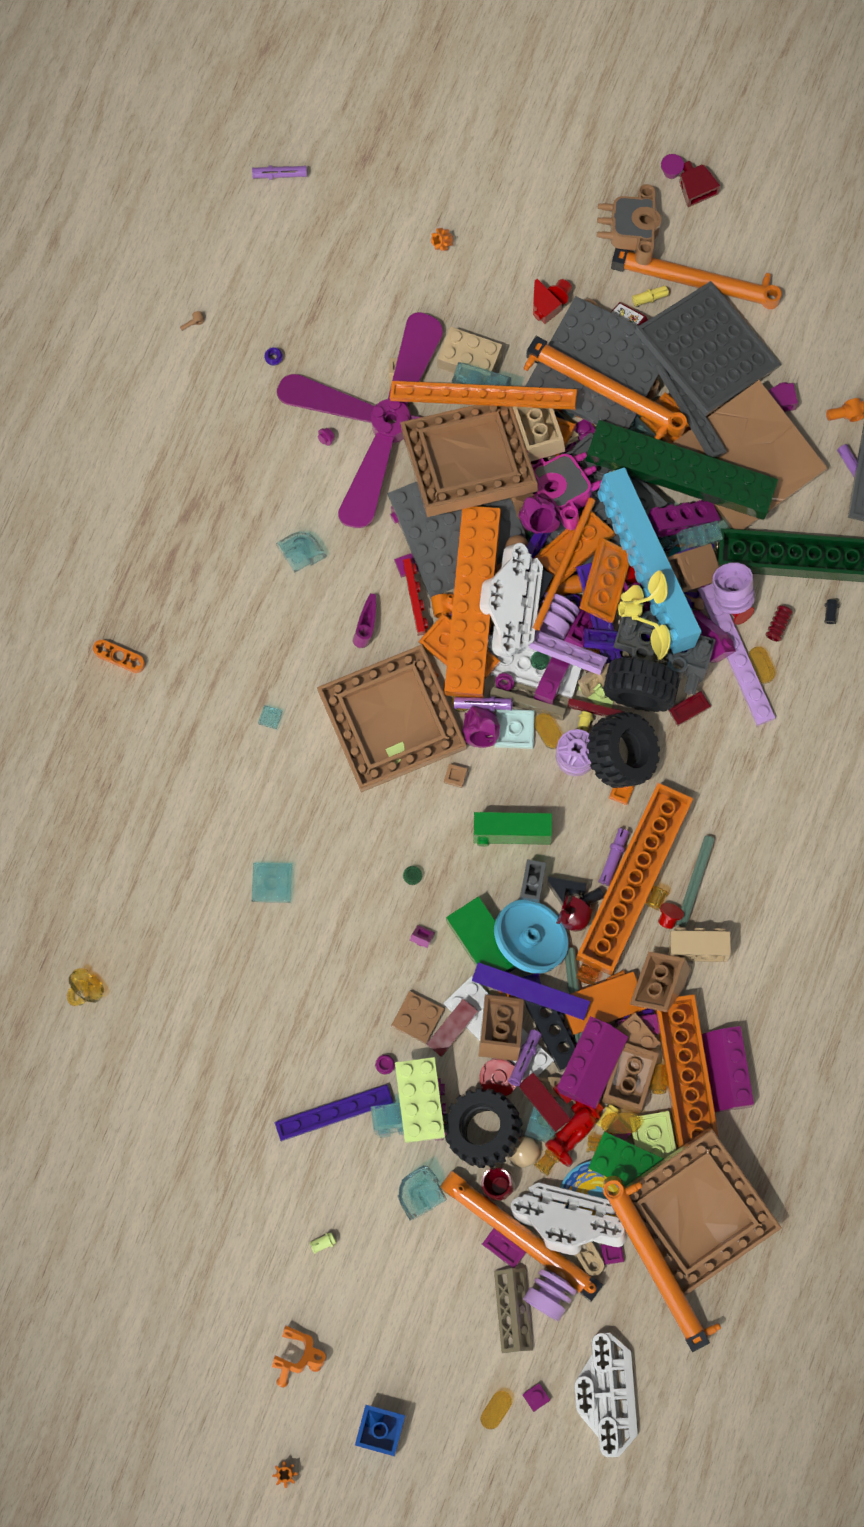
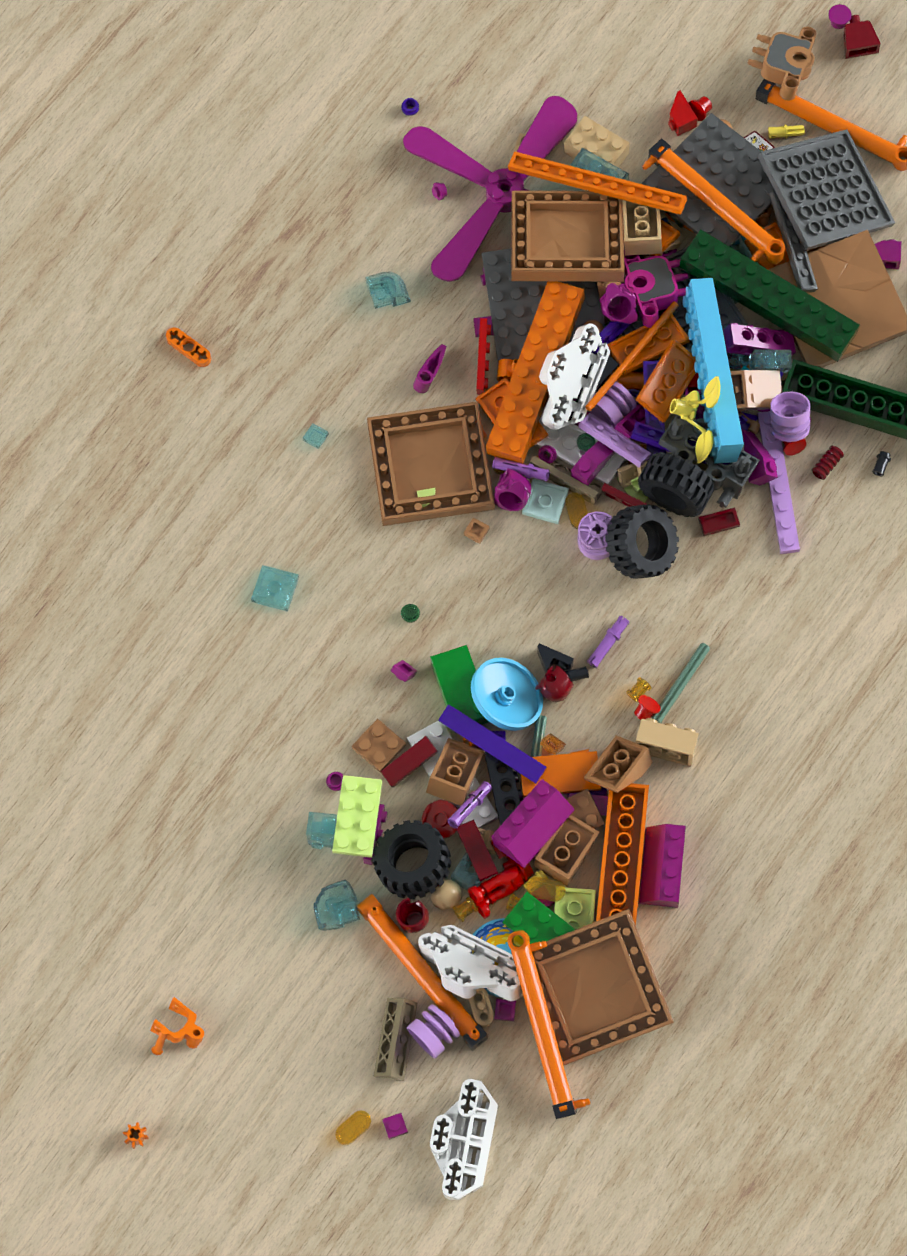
camera: 15 degrees right, 5 degrees down
(86, 986) = (72, 639): clear yellow tile -> none
(197, 320) = (348, 57): medium nougat hand -> none
(323, 1242) = (231, 930): yellowish green pin -> none
(333, 1113) = (270, 813): dark purple tile -> none
(380, 1430) = (236, 1116): blue slope -> none
(442, 239) = (599, 34): orange gear -> none
(503, 1248) = (401, 978): magenta plate -> none
(512, 828) = (516, 590): green brick -> none
(533, 881) = (523, 644): dark grey brick -> none
(583, 428) = (686, 239): magenta plate -> none
(584, 722) = (615, 506): light yellow pin -> none
(621, 794) = (631, 585): orange tile -> none
(634, 879) = (621, 666): orange brick -> none
(658, 1081) = (593, 860): clear yellow cone -> none
(762, 665) = (800, 497): clear yellow tile -> none

